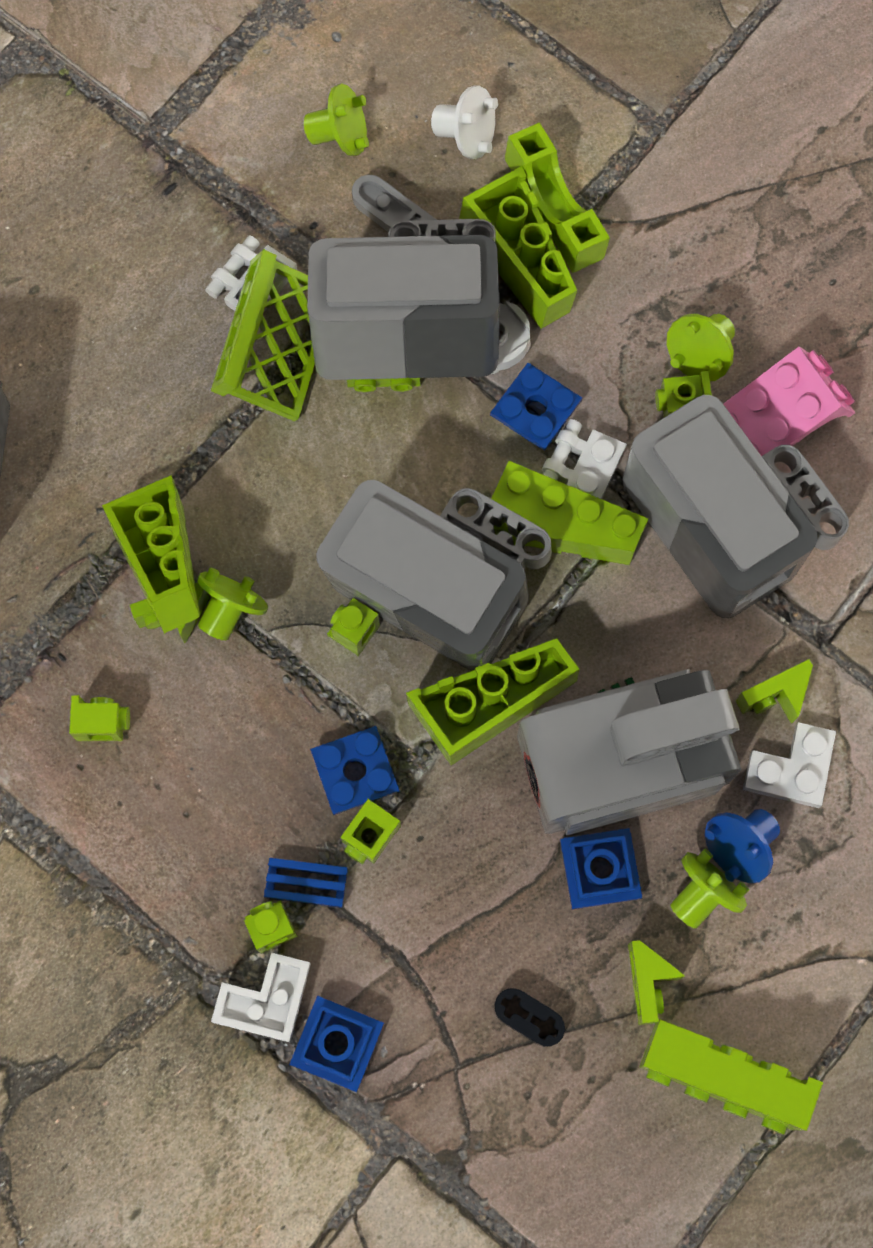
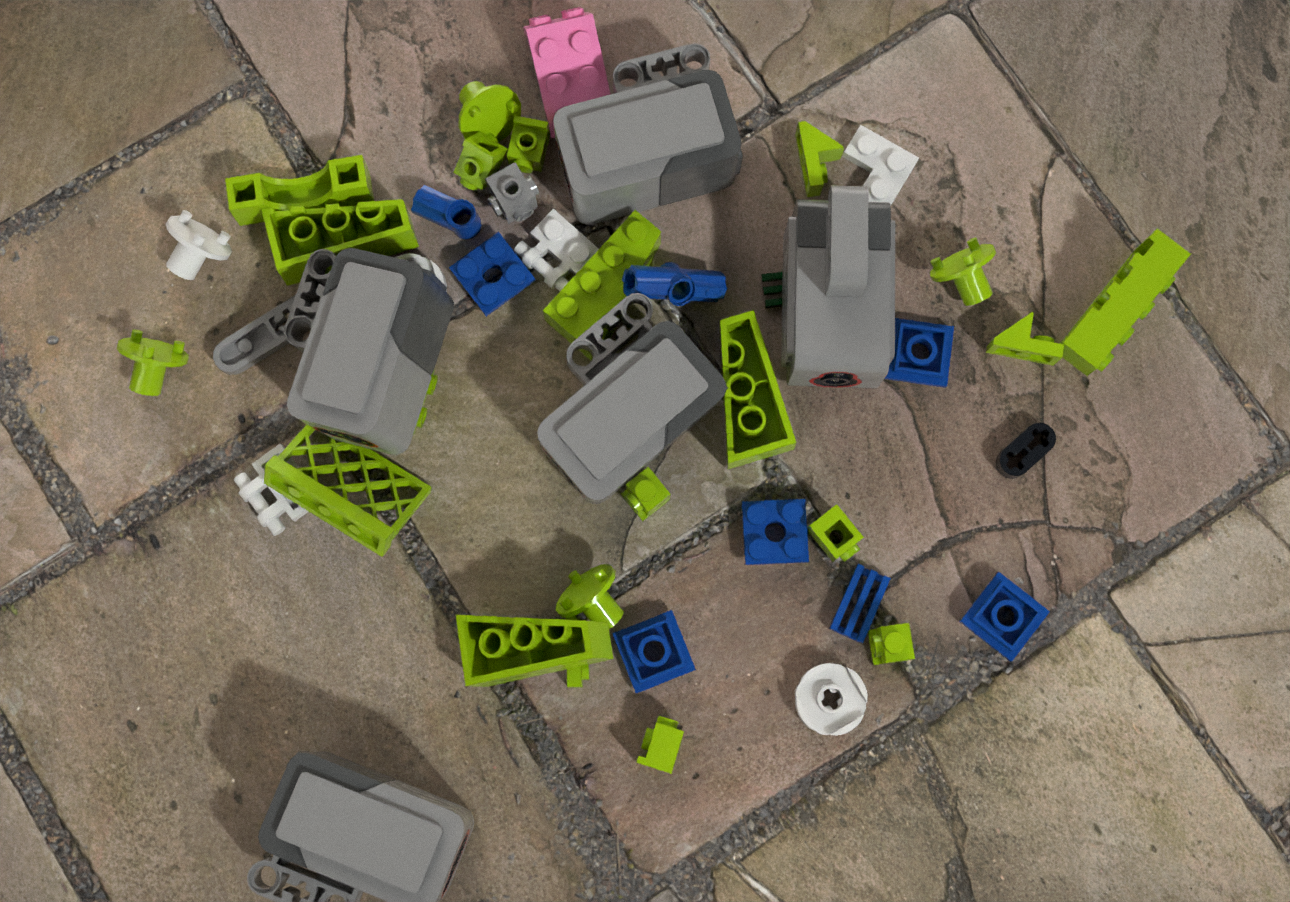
camera: 75 degrees left, 5 degrees up
(193, 857) = (850, 705): none -> white plate
(194, 707) = (643, 672): none -> blue piece
(271, 1010) = (962, 666): white plate -> none
(582, 583) = (674, 283): none -> blue piece
(585, 342) = (445, 211): none -> blue piece
(625, 396) = (512, 194): none -> light grey brick
(641, 351) = (479, 160): none -> lime brick
(742, 844) = (937, 229): blue piece -> none

